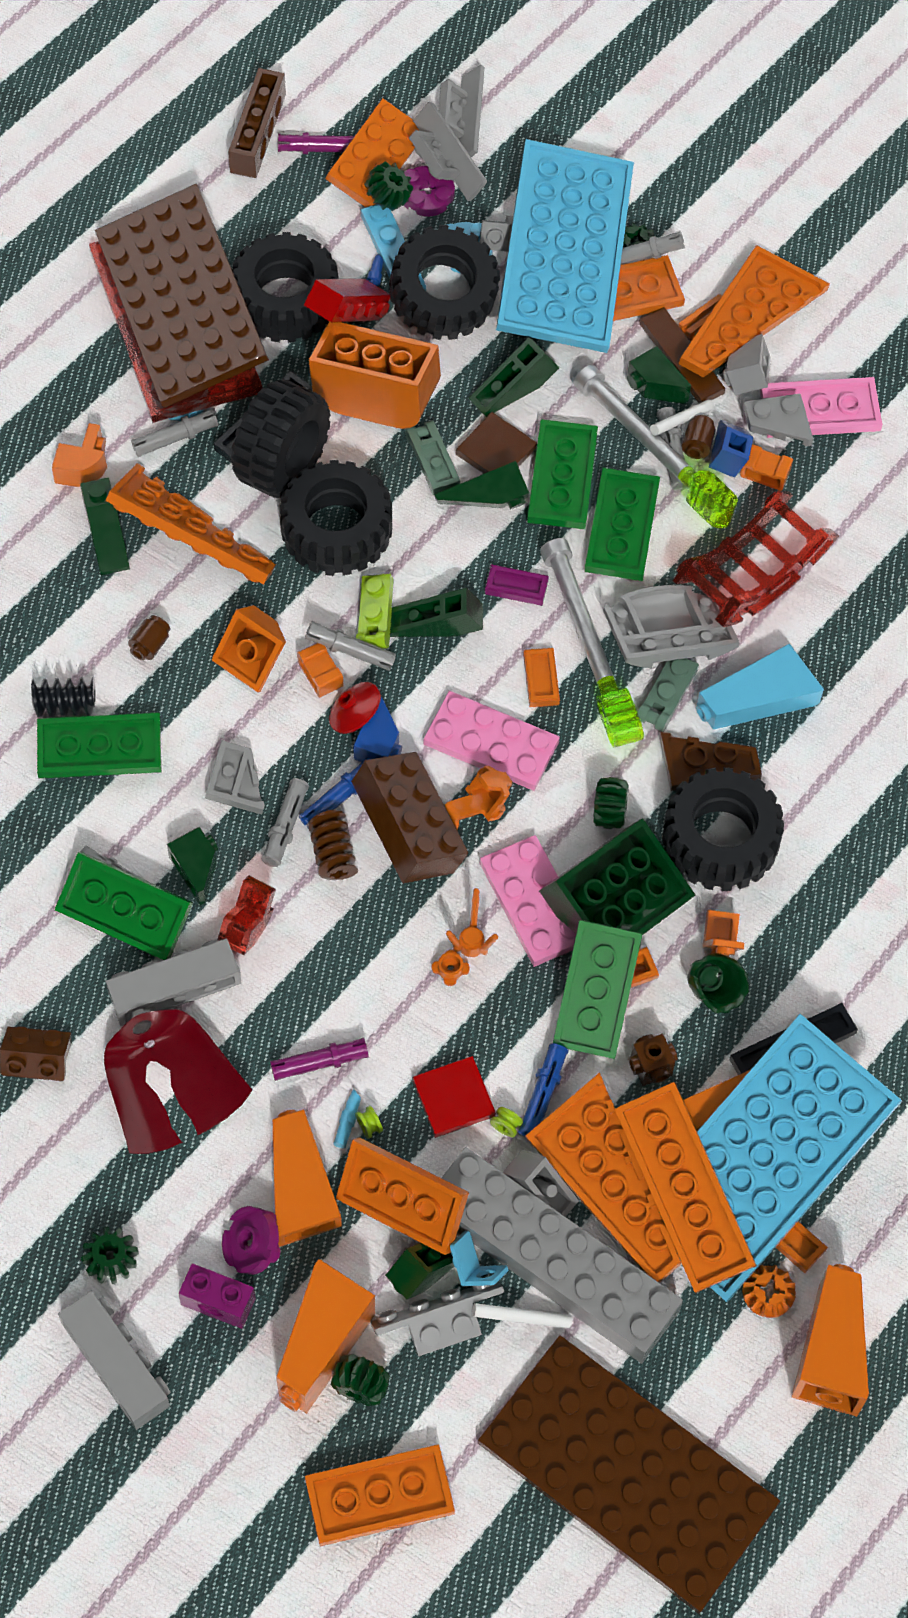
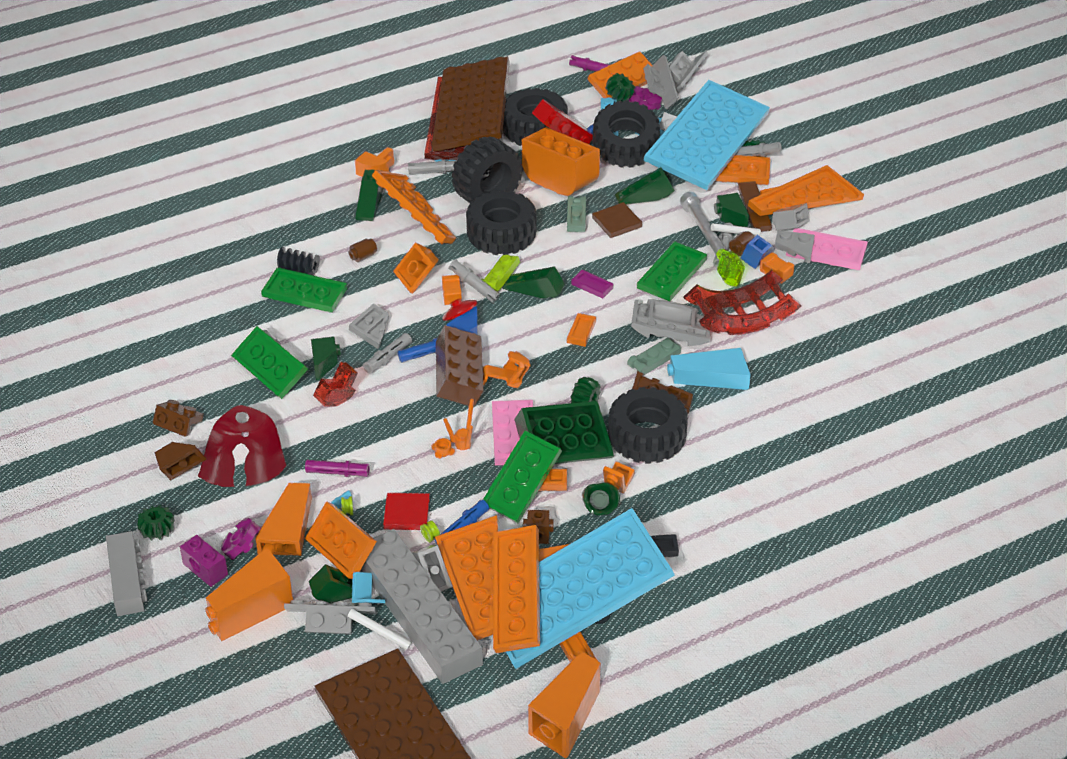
camera: 25 degrees right, 20 degrees down
(83, 1134) = (178, 458): none -> reddish brown slope
(174, 980) = (278, 403): light grey brick -> none
(257, 123) = (562, 47): reddish brown brick -> none
(331, 845) = (407, 369): reddish brown piece -> none
(360, 1380) = (260, 627): dark green gear -> none
(379, 1495) = (237, 693): orange plate -> none
(491, 739) = (544, 355): bright pink plate -> none
(493, 489) = (598, 233): dark green slope -> none
(562, 474) = (649, 240): green plate -> none
(613, 705) = (617, 350): piece -> none
(778, 1303) = (543, 678): orange gear -> none

